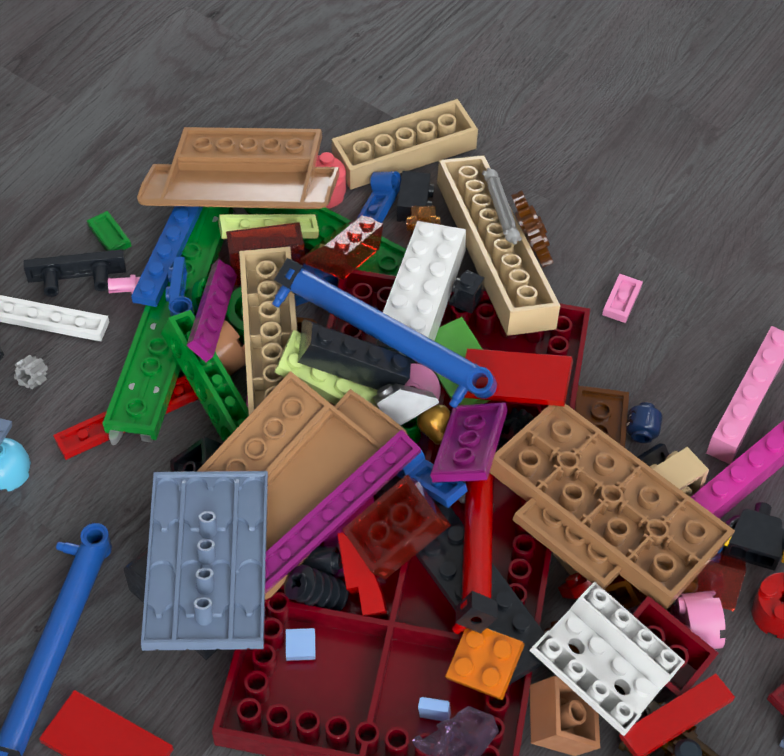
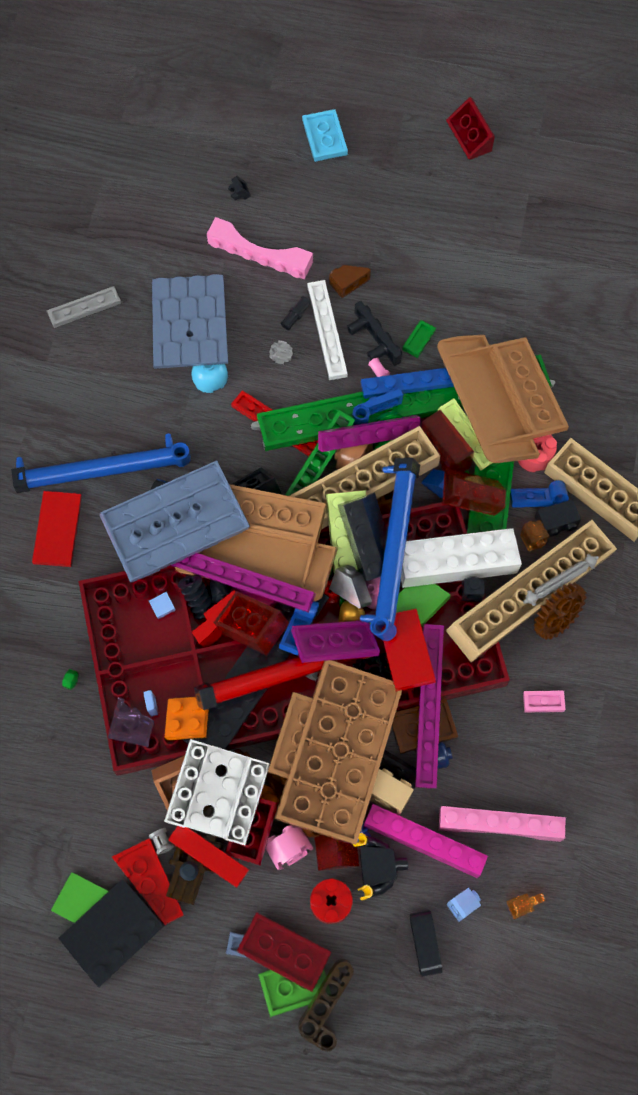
camera: 65 degrees right, 15 degrees up
(612, 403) = (430, 712): none -> magenta plate

